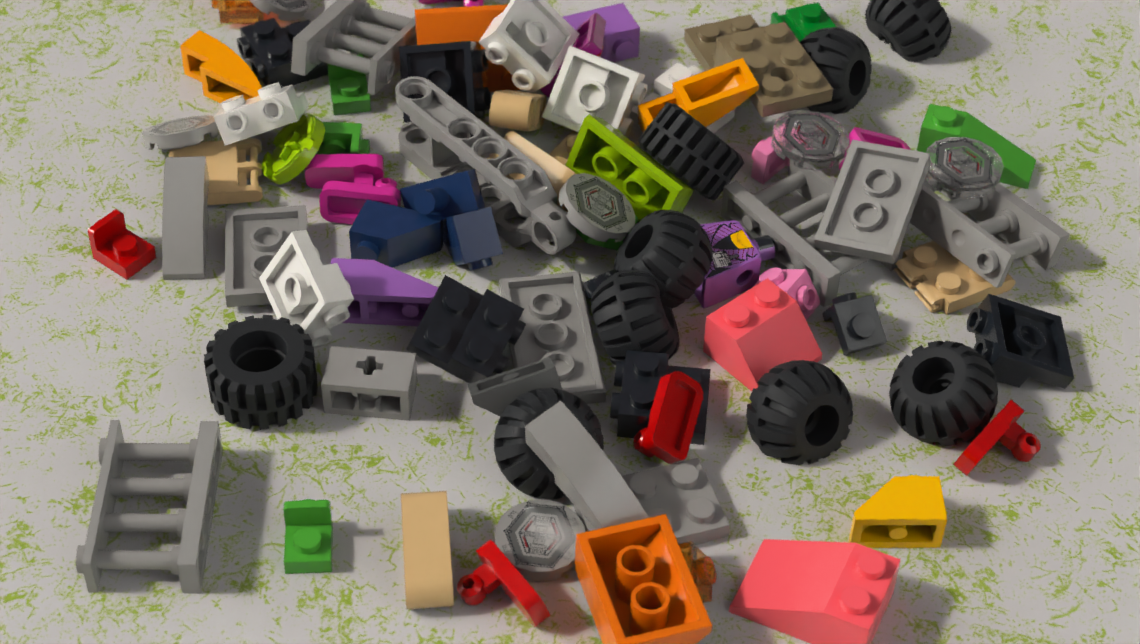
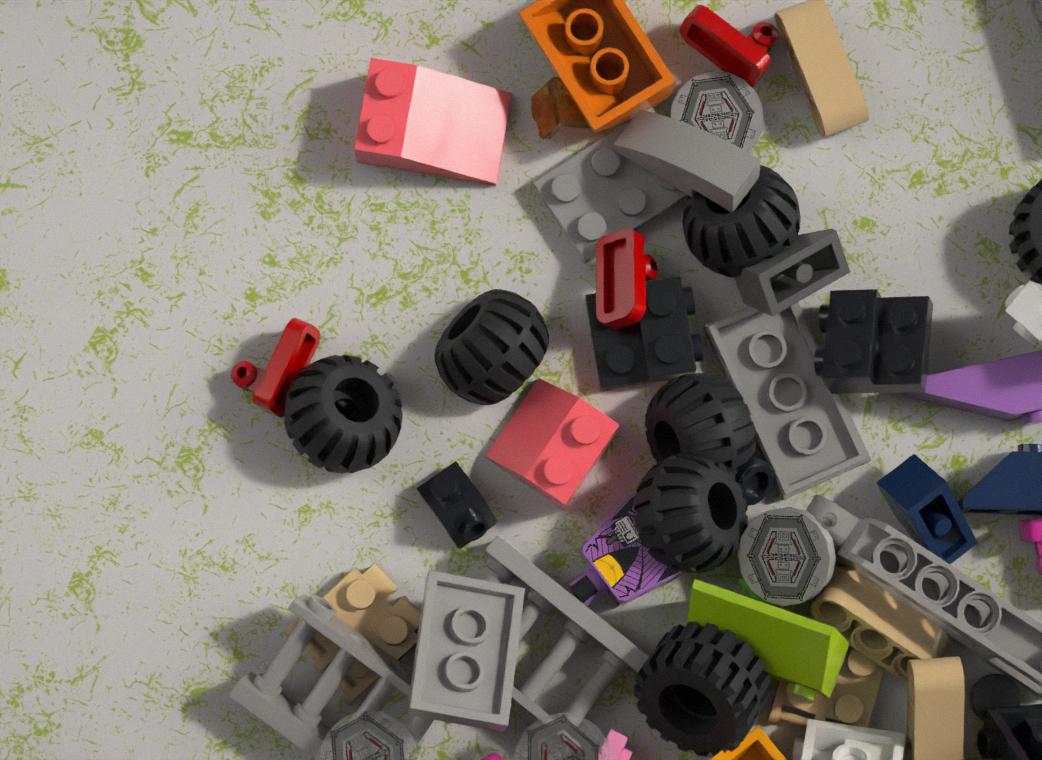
camera: 165 degrees right, 35 degrees up
(308, 536) = (941, 51): bright green bracket -> none
(369, 383) = (977, 243): light grey brick -> none
(445, 195) = (978, 539): dark blue tile -> none
(797, 285) = (544, 529): bright pink bracket -> none
(902, 515) = (362, 240): yellow slope -> none
(1021, 342) = (268, 516): black plate -> none

